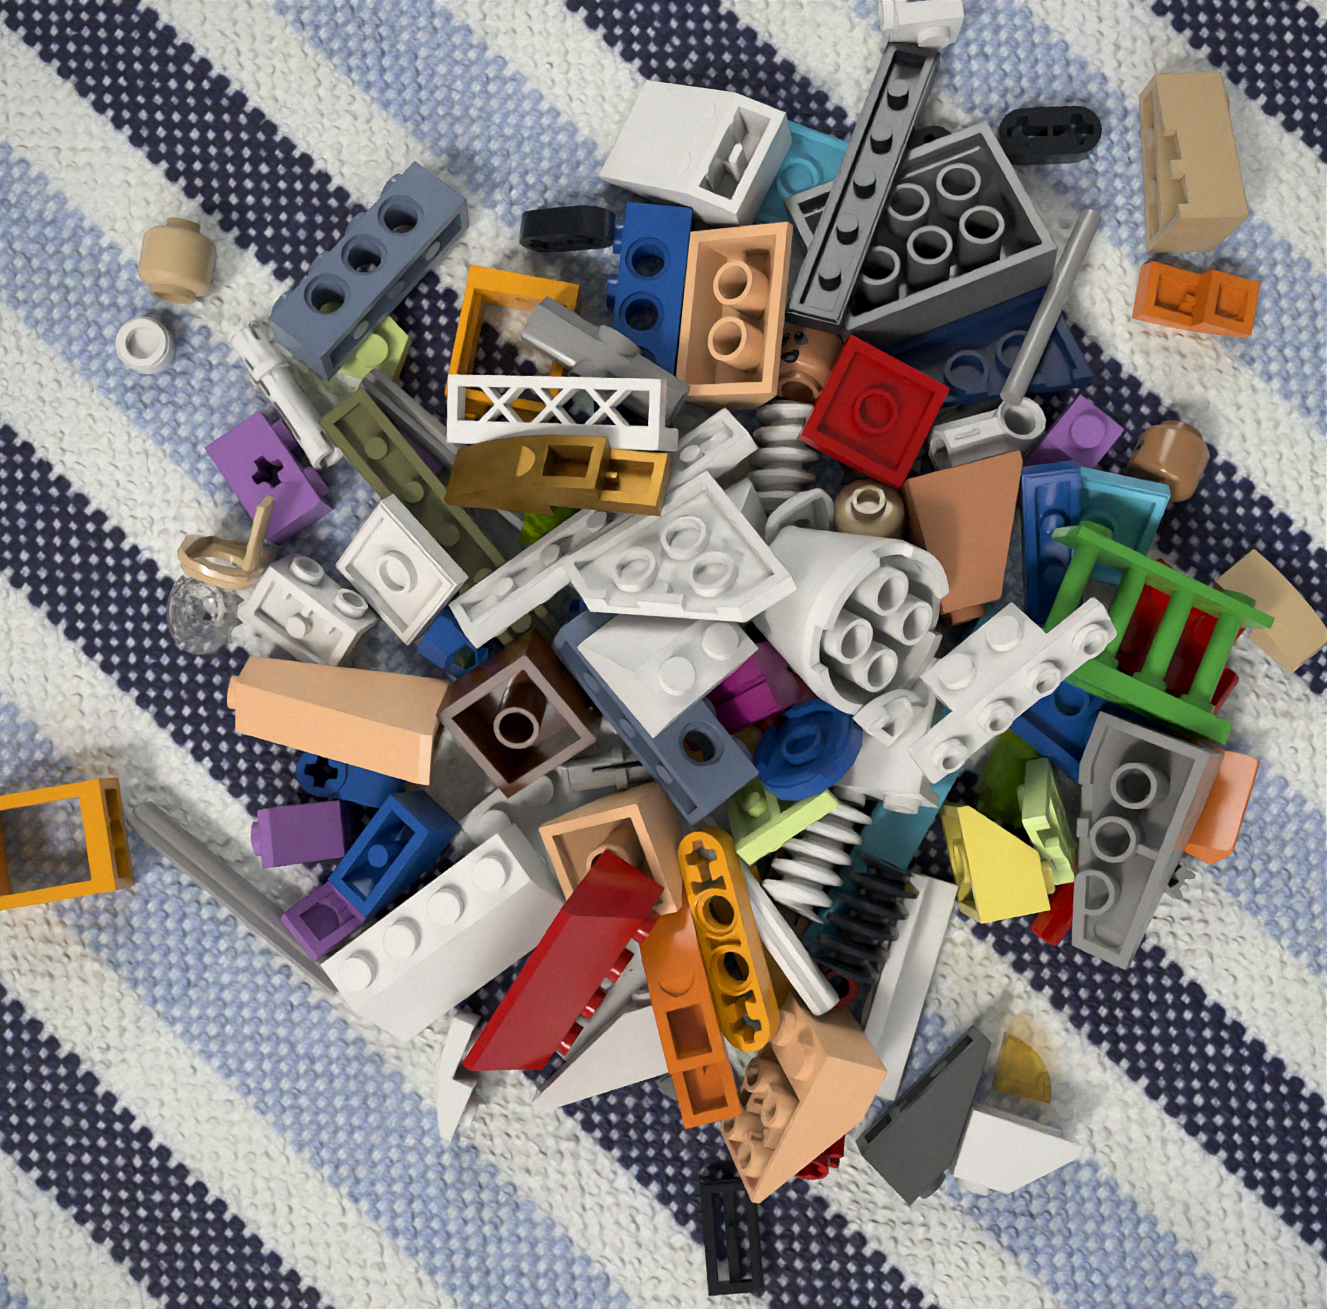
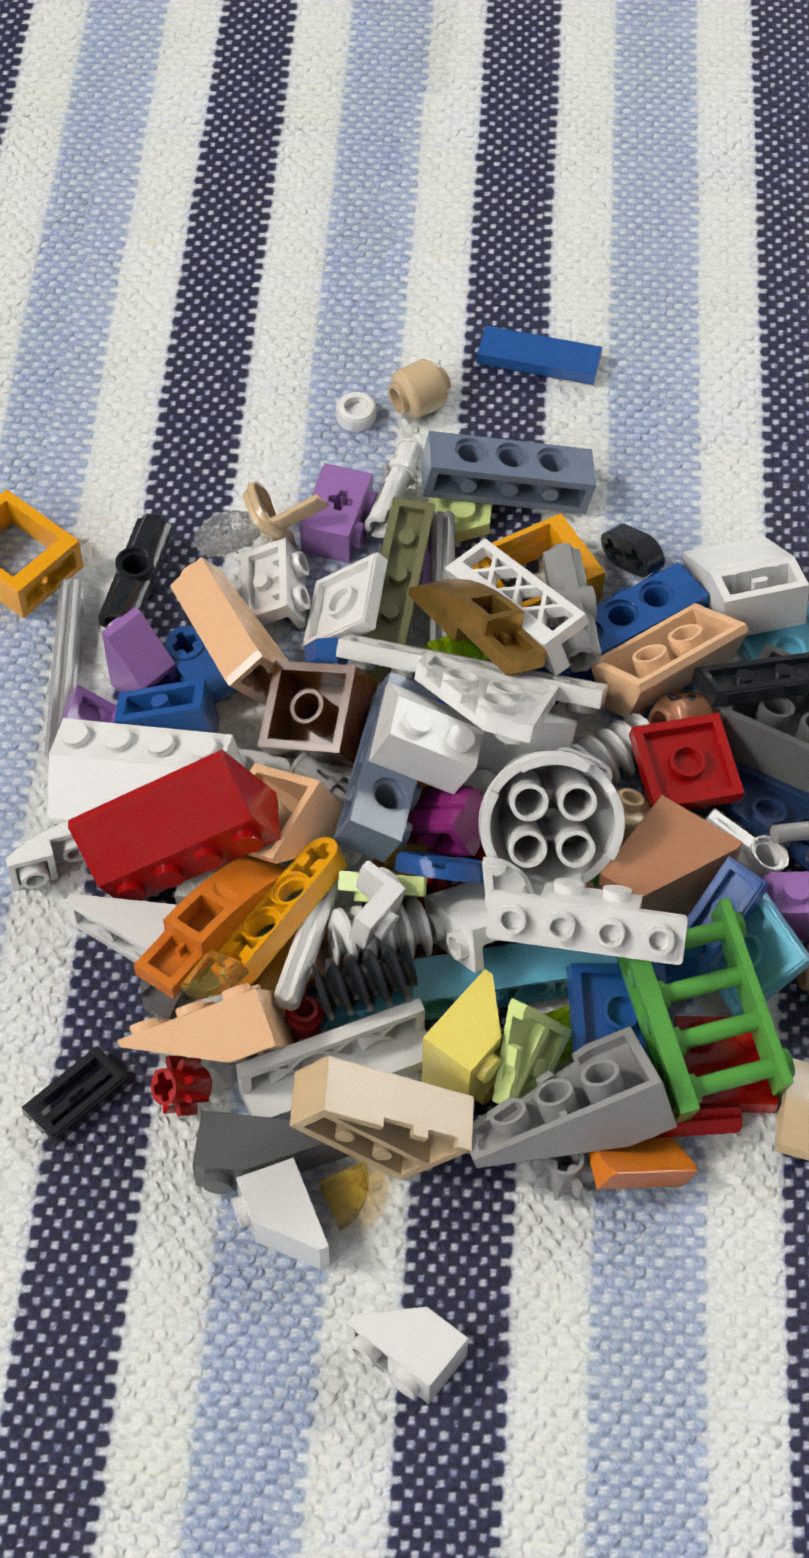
camera: 45 degrees right, 30 degrees down
(160, 716) = (137, 568): none -> black piece
(228, 93) = (539, 355): none -> blue tile
(756, 1060) = (213, 975): none -> clear yellow tile
(831, 868) = (378, 914): none -> white bracket
(1009, 1013) = (381, 1116): none -> tan wedge
(1213, 1136) = (411, 1346): none -> white slope

